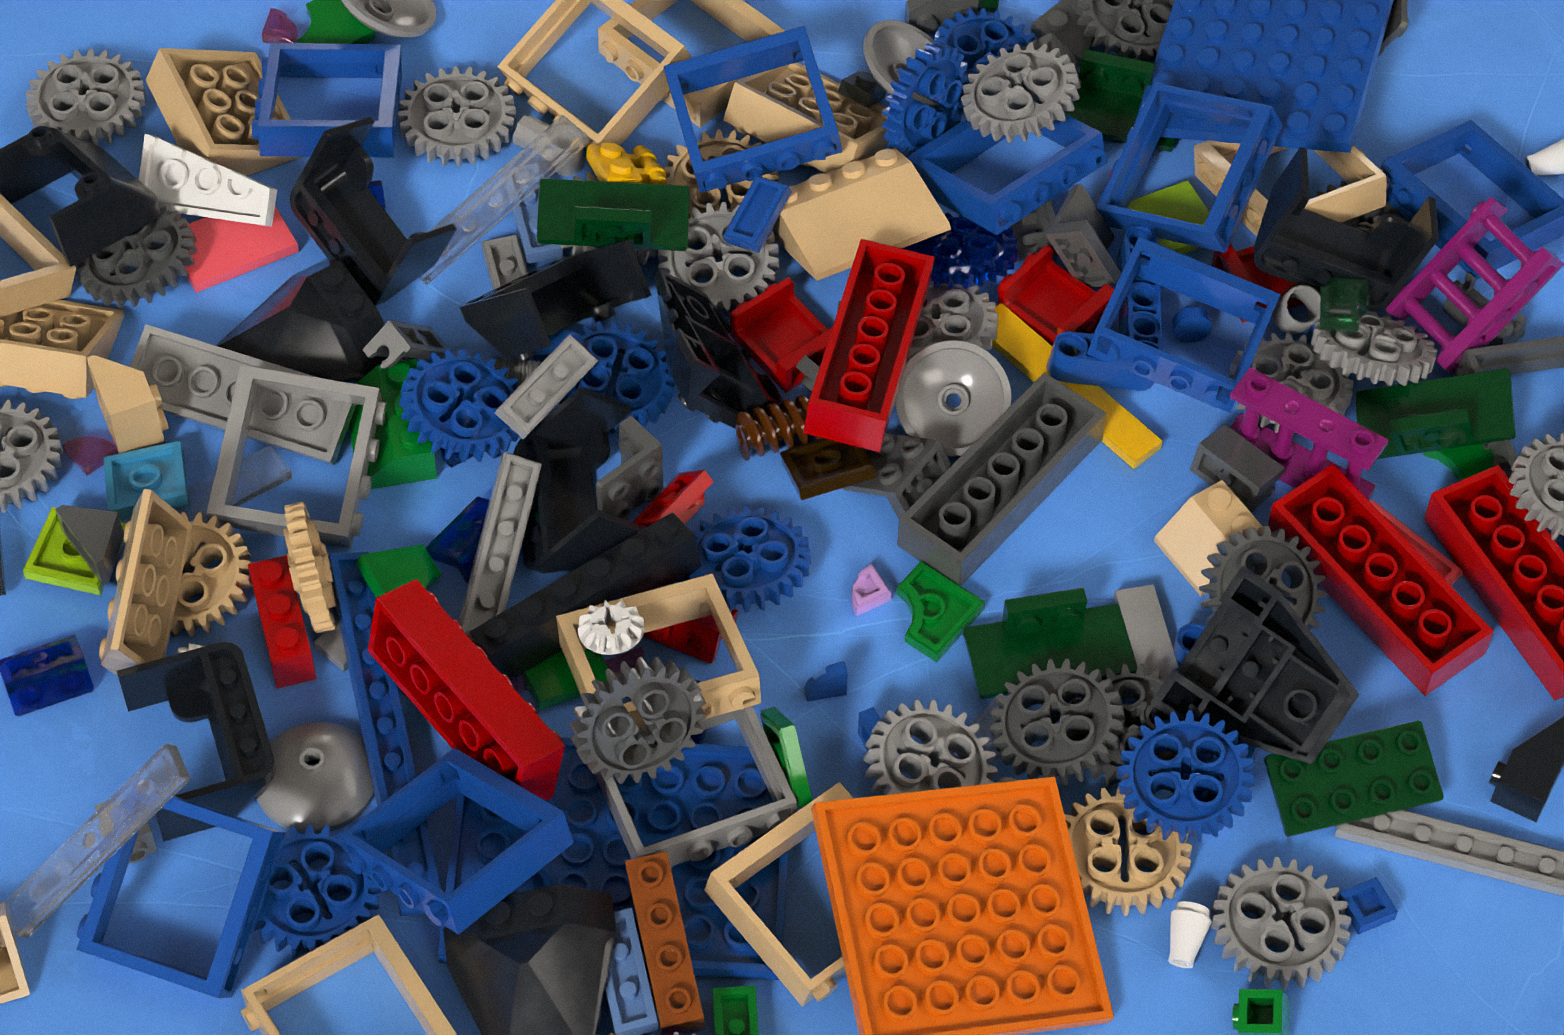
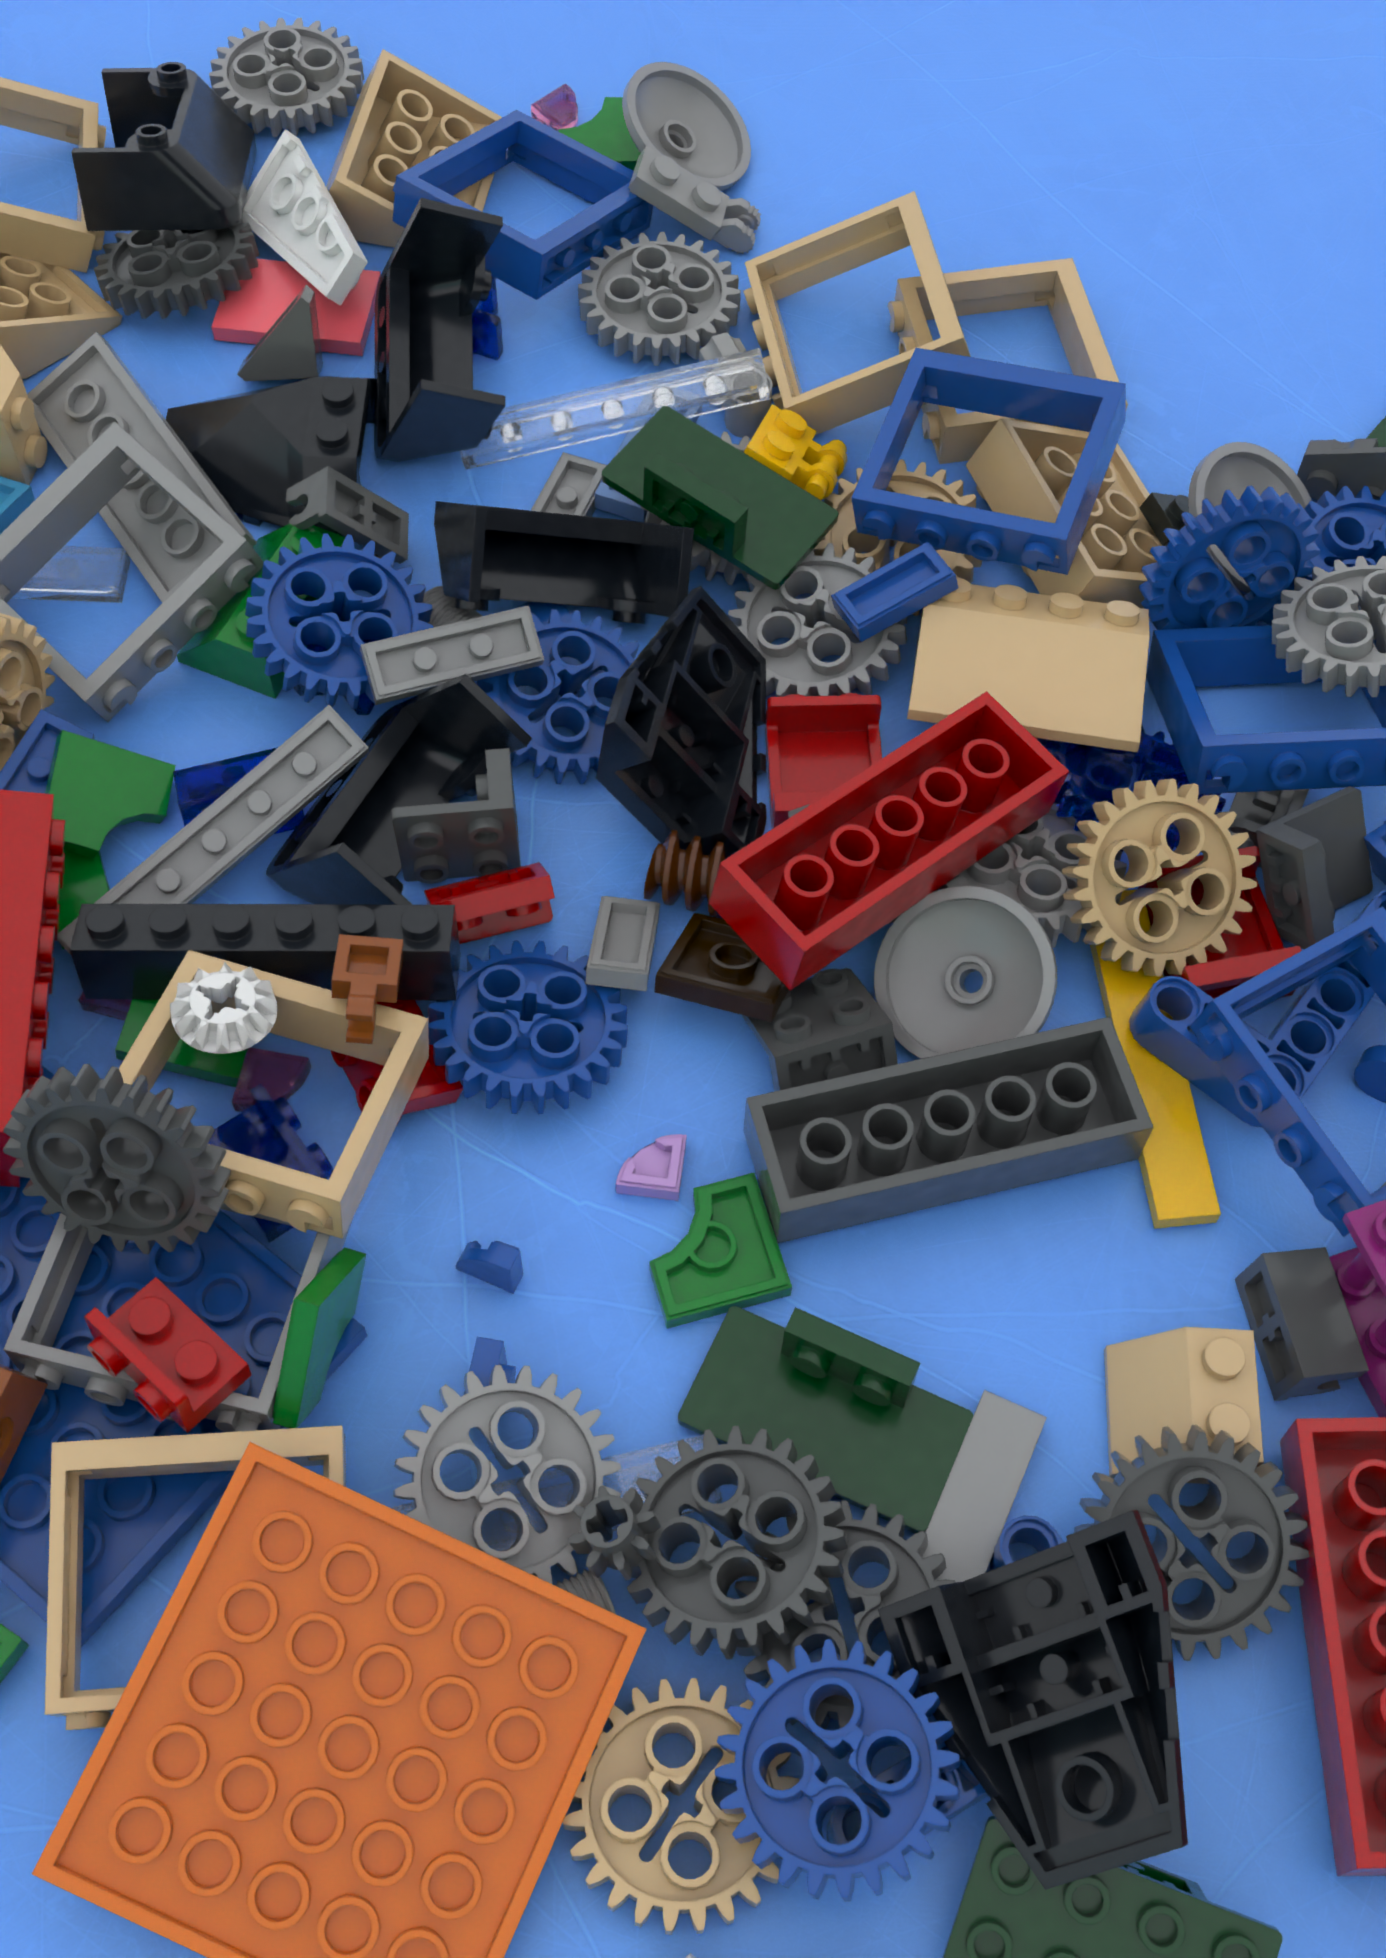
camera: 35 degrees right, 5 degrees up
(259, 268) = (290, 346): none -> dark grey slope
(430, 44) = (694, 201): none -> light grey hinge
(669, 567) = (366, 973): none -> dark orange plate
(727, 803) = (168, 1353): none -> red bracket
(759, 488) = (623, 943): none -> light grey tile
(1005, 748) = (596, 1531): none -> dark grey gear
(1040, 304) = (1140, 829): none -> tan gear

